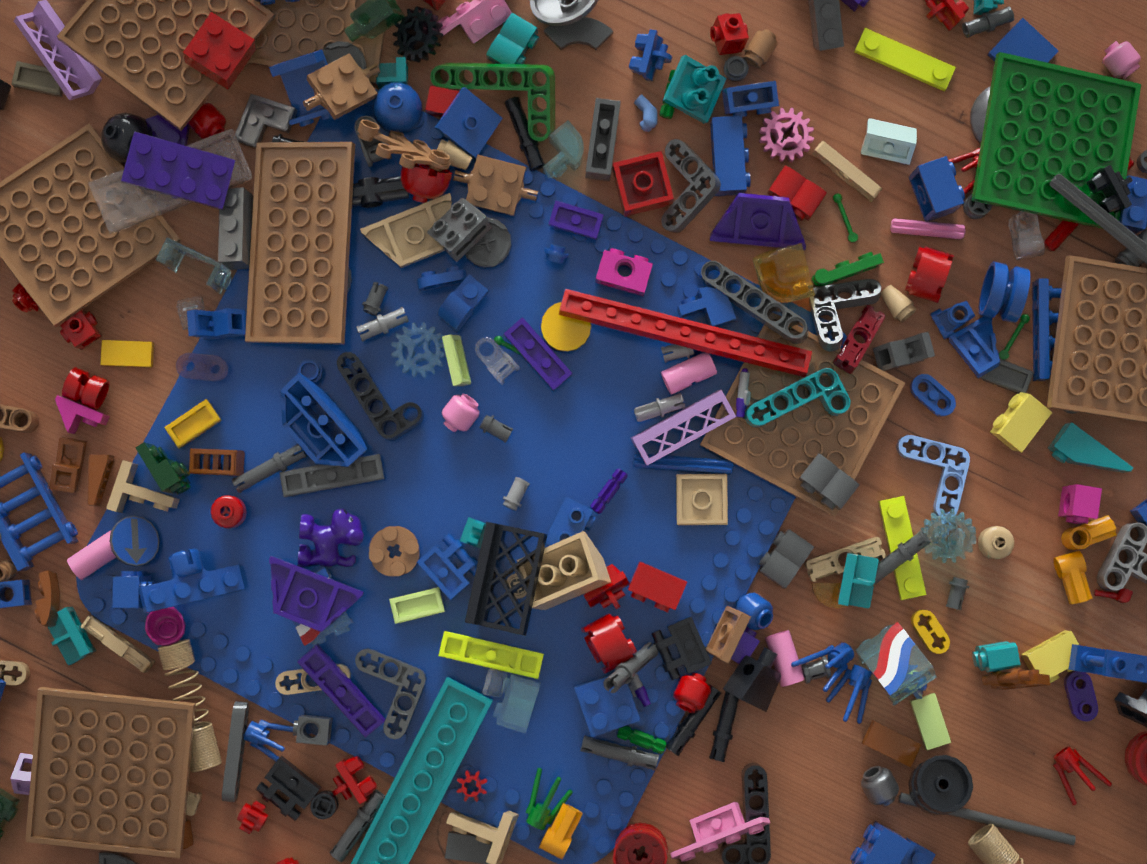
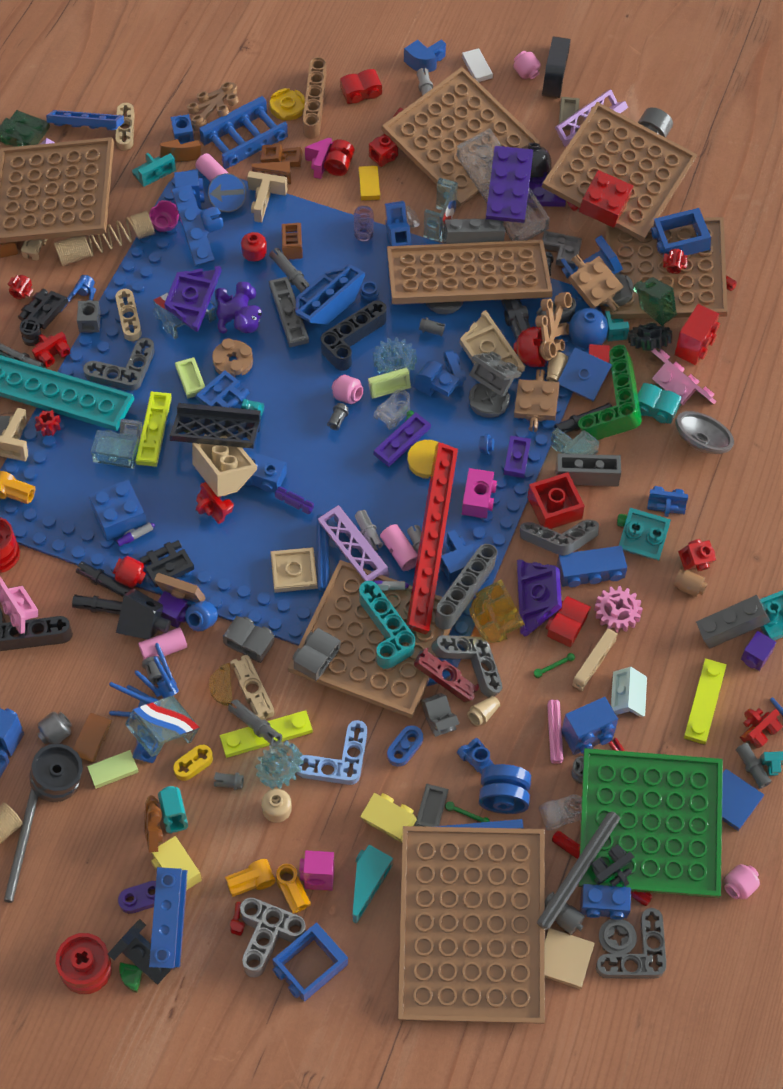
camera: 85 degrees right, 25 degrees down
(118, 644) = (150, 193): tan piece -> none
(167, 473) = (281, 201): dark green plate -> none
(193, 423) = (320, 223): yellow tile -> none
(208, 121) = (556, 209): red head -> none
(235, 752) = (50, 273): dark grey beam -> none
(341, 690) = (120, 329): dark purple plate -> none
(382, 324) = (412, 333): light grey pin -> none
(516, 494) = (285, 434): light grey pin -> none
(541, 815) = (26, 472): green plant -> none
(585, 31) = (677, 450): dark grey tile -> none
(608, 642) = (167, 503): red brick -> none
(621, 753) = (75, 532): dark grey pin -> none
(626, 671) = (143, 509): dark grey pin -> none
(641, 739) = (89, 541): green axle -> none
(649, 113) = (617, 507): medium blue arm -> none
(656, 586) = (217, 536): red brick -> none
(736, 68) = (669, 568): dark grey plate -> none
(750, 97) = (644, 574): blue brick -> none
(845, 269) = (507, 666): green plate -> none
(858, 580) = (233, 689): teal panel -> none
(930, 275) = (512, 728): red brick -> none
(977, 346) = (454, 778): blue wing -> none
(1068, 760) = (80, 887): red plant -> none

